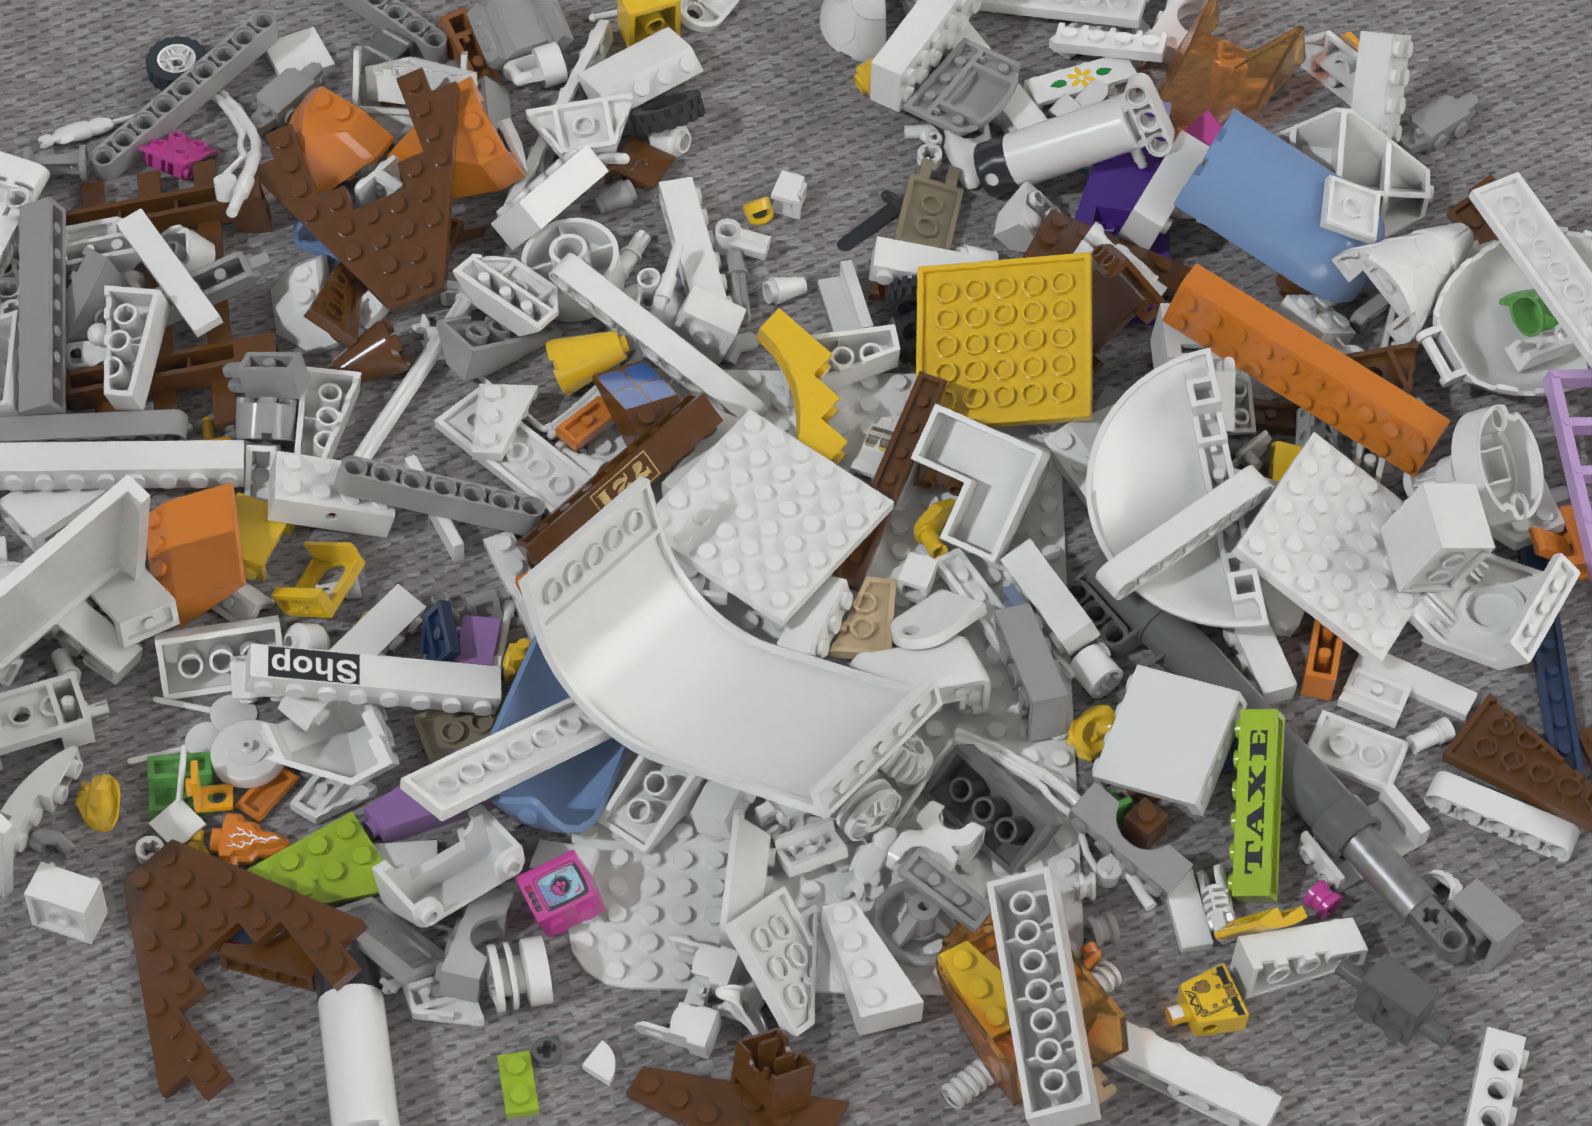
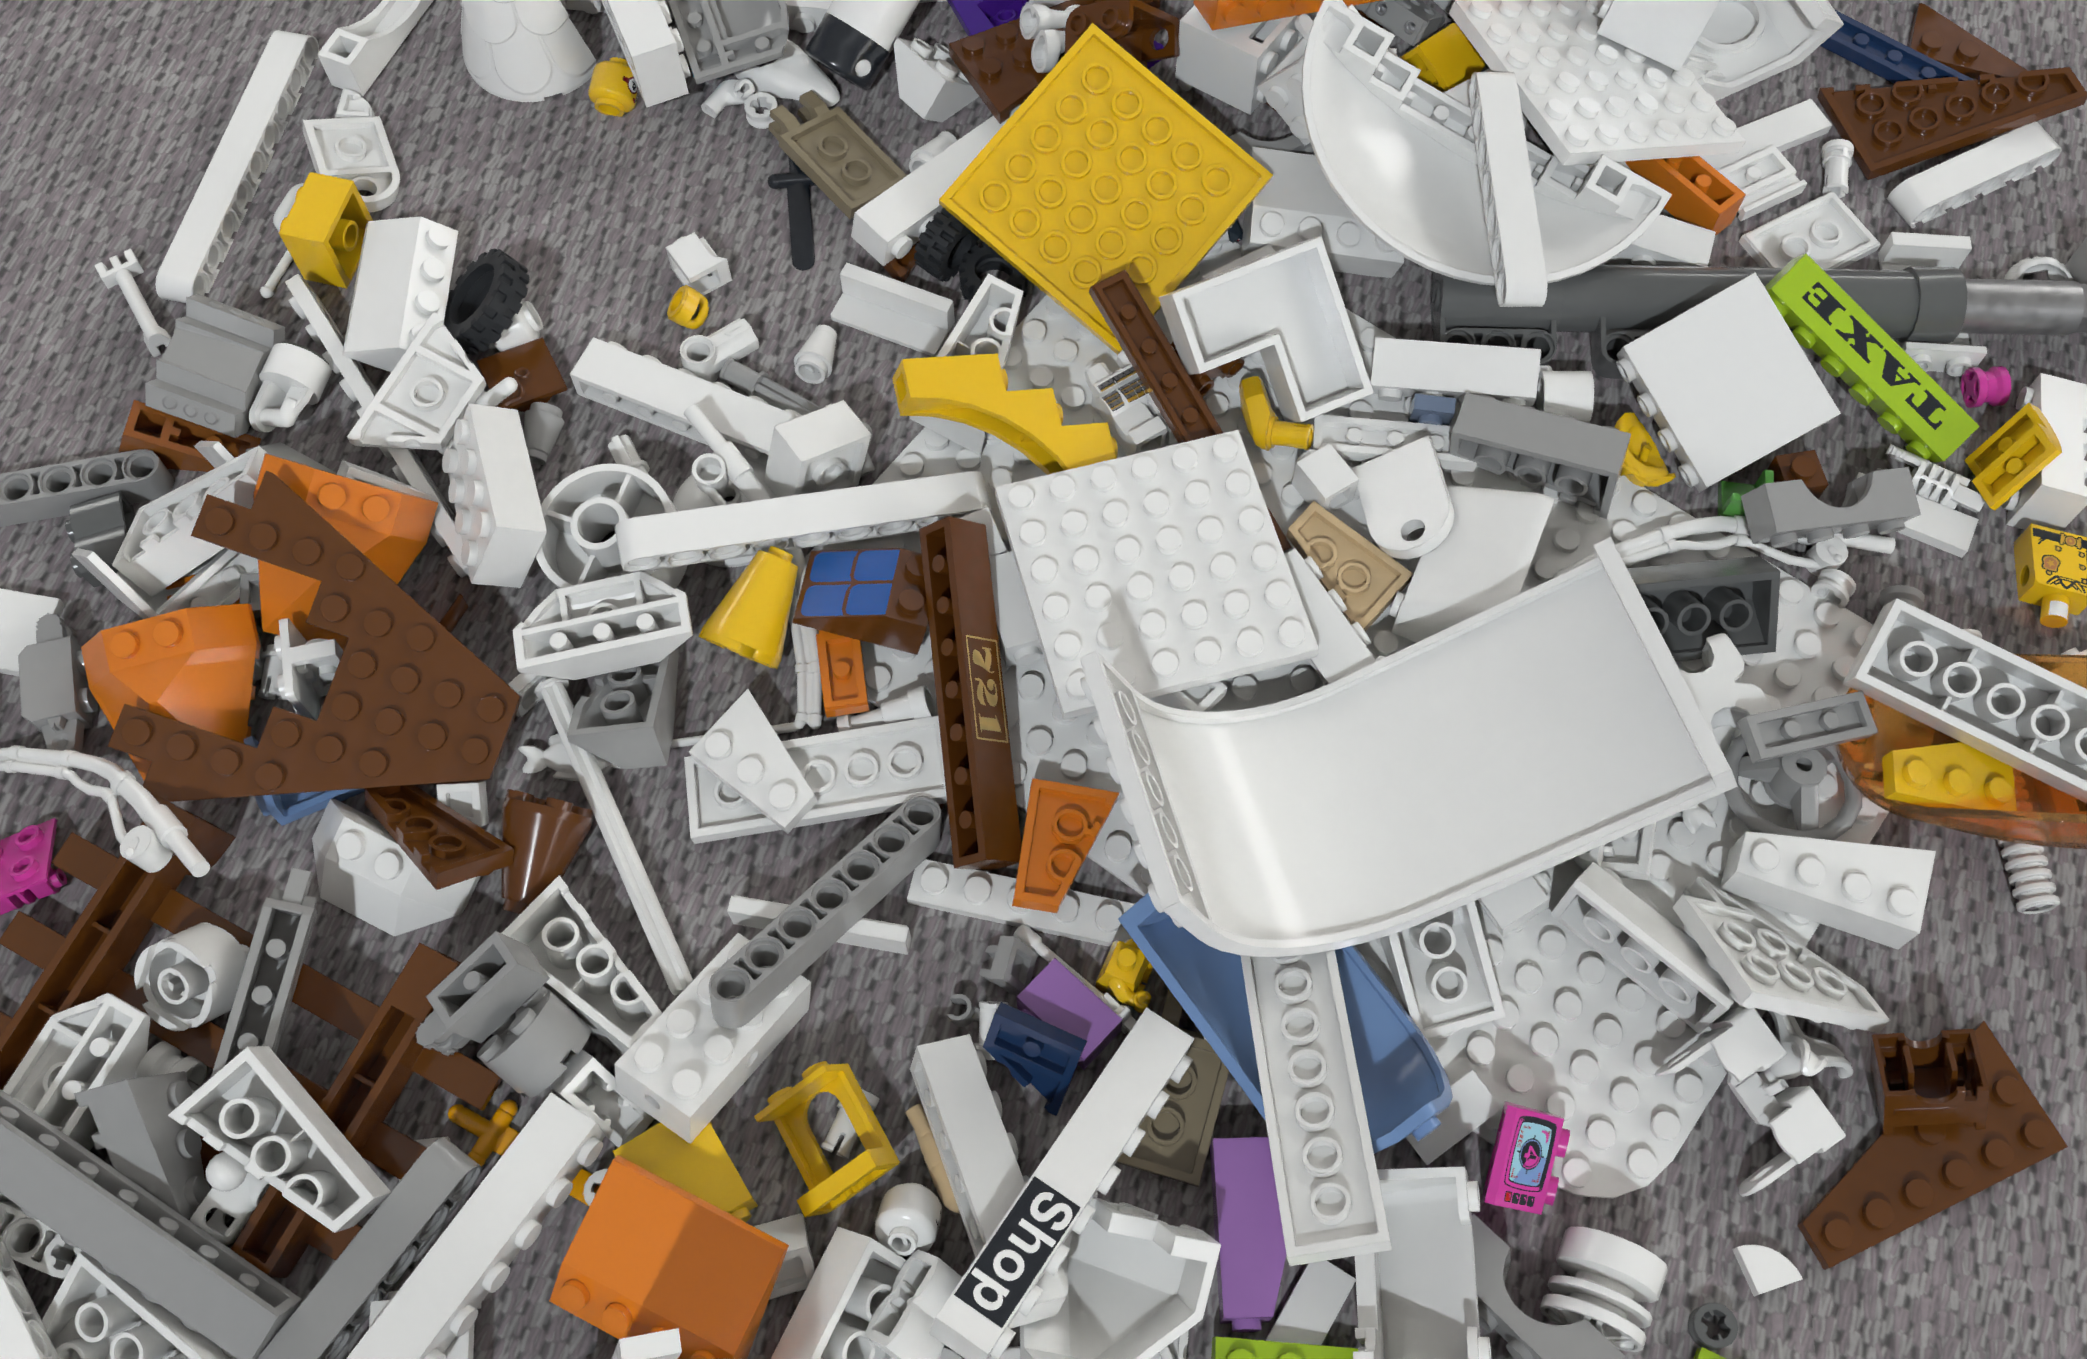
camera: 50 degrees left, 10 degrees up
(169, 272) = (216, 1012): white tile -> none

